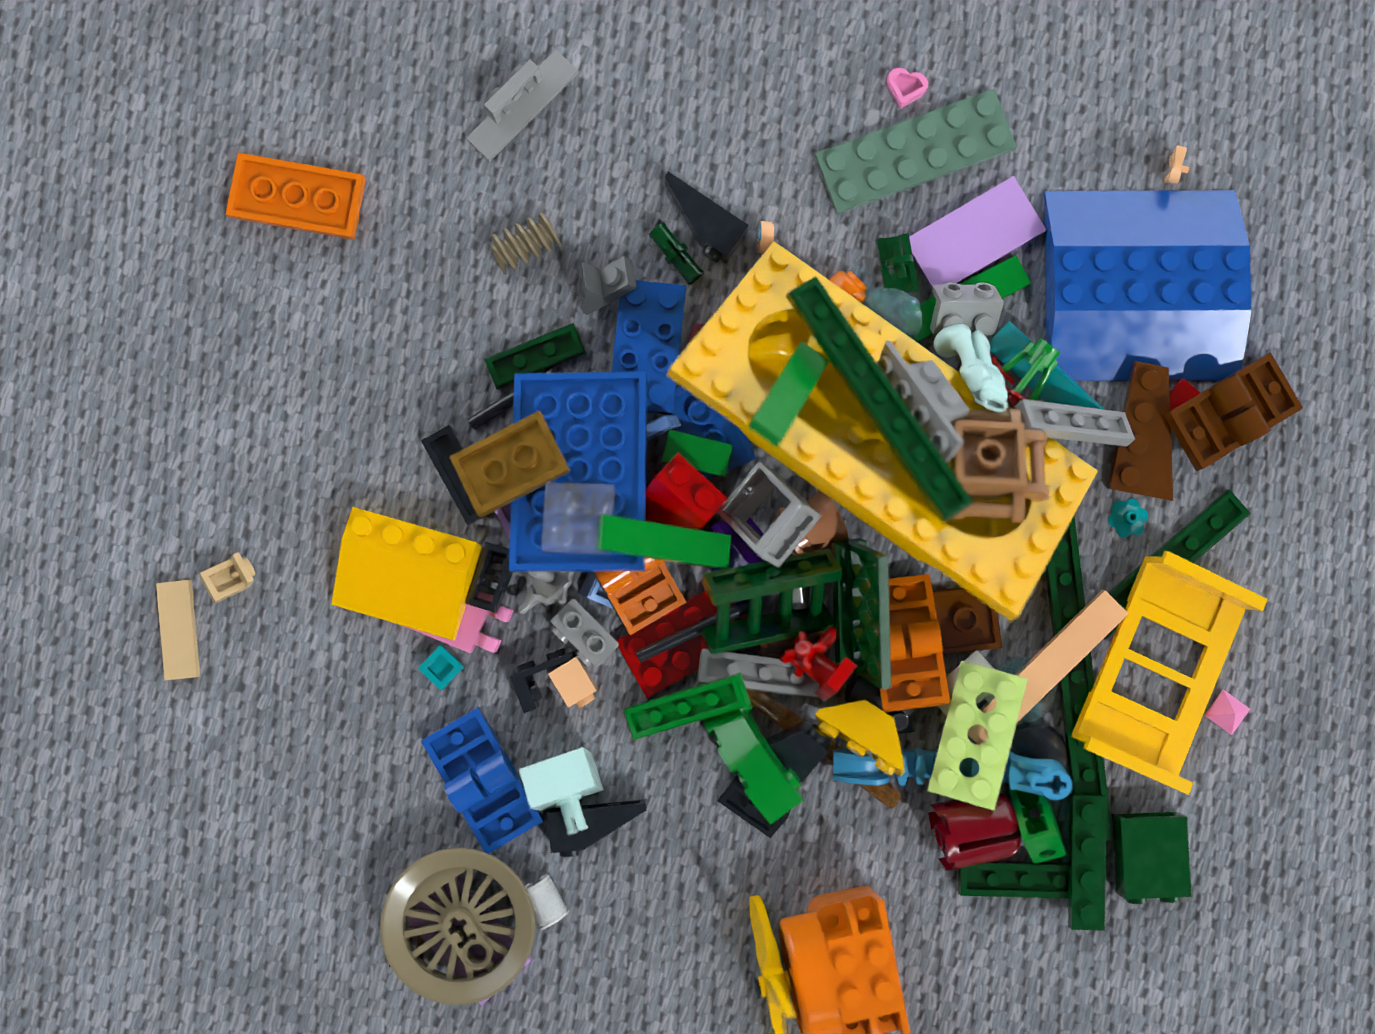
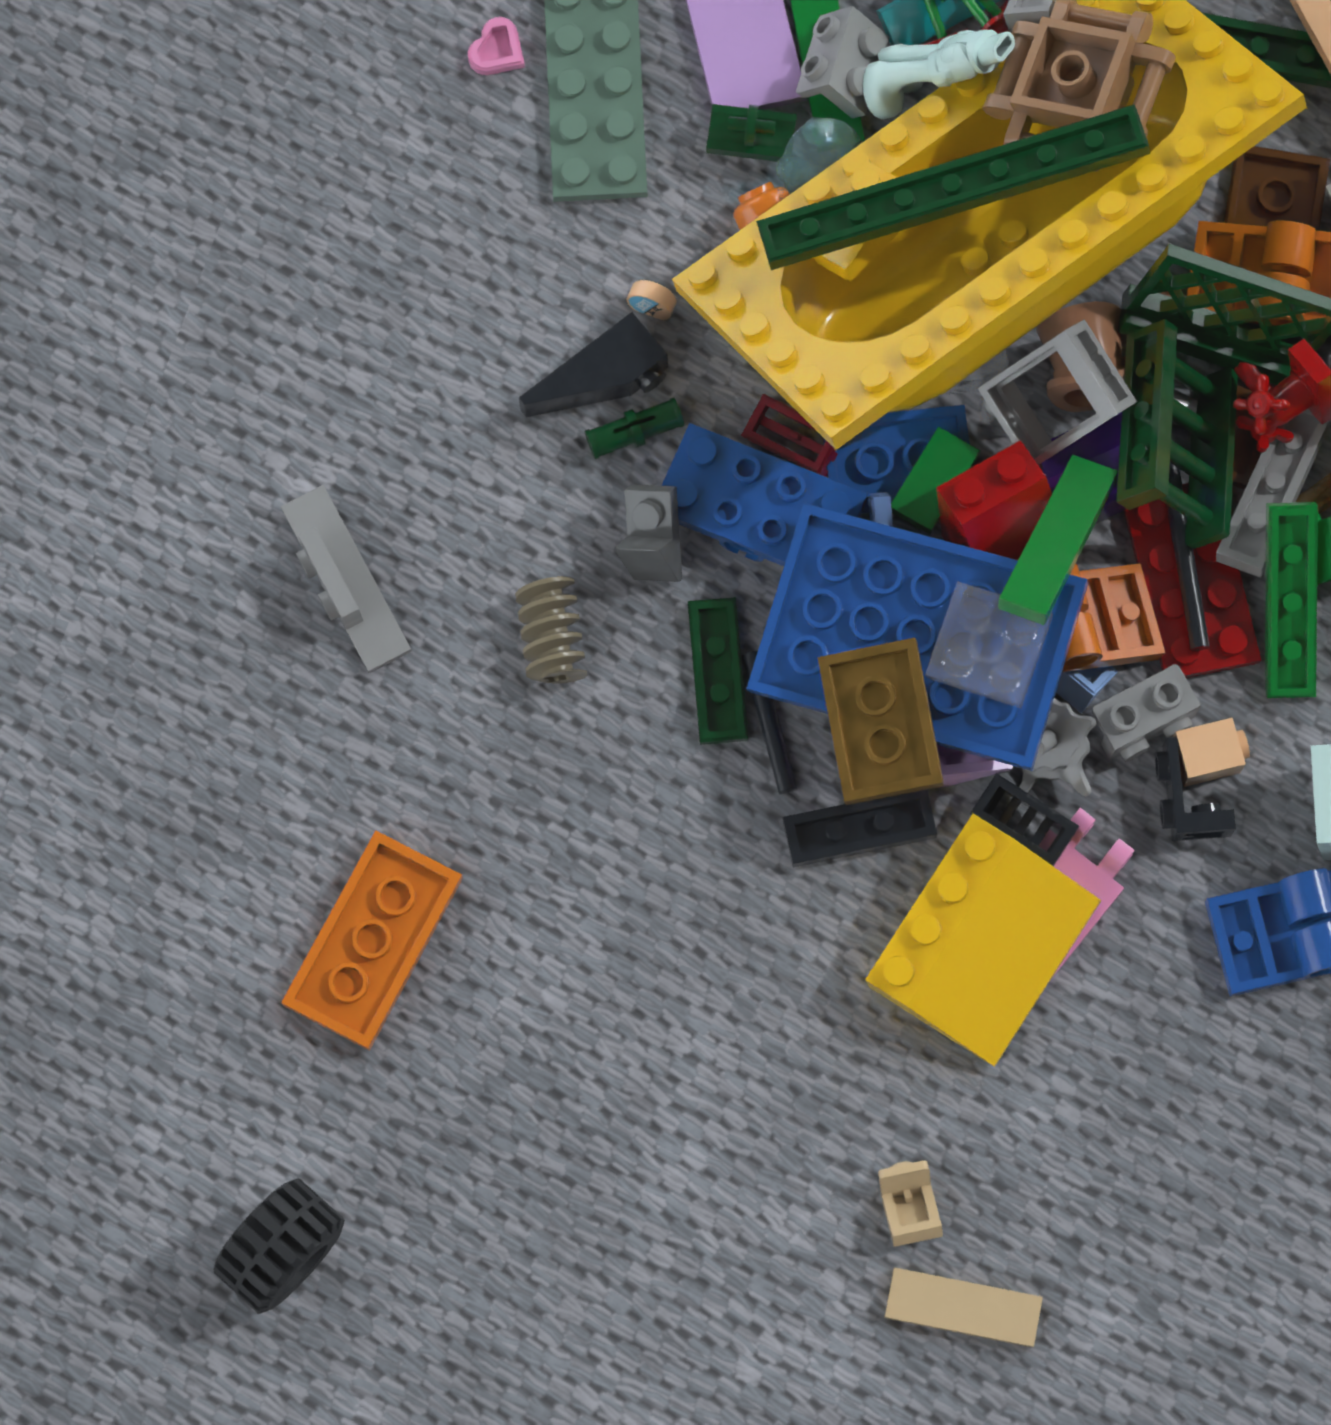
camera: 70 degrees left, 10 degrees down
(77, 196) = (278, 1245): none -> black tyre
(441, 667) = (1132, 935): teal plate -> none
(788, 394) = (912, 298): green tile -> none
(927, 397) = (969, 126): light grey bracket -> none

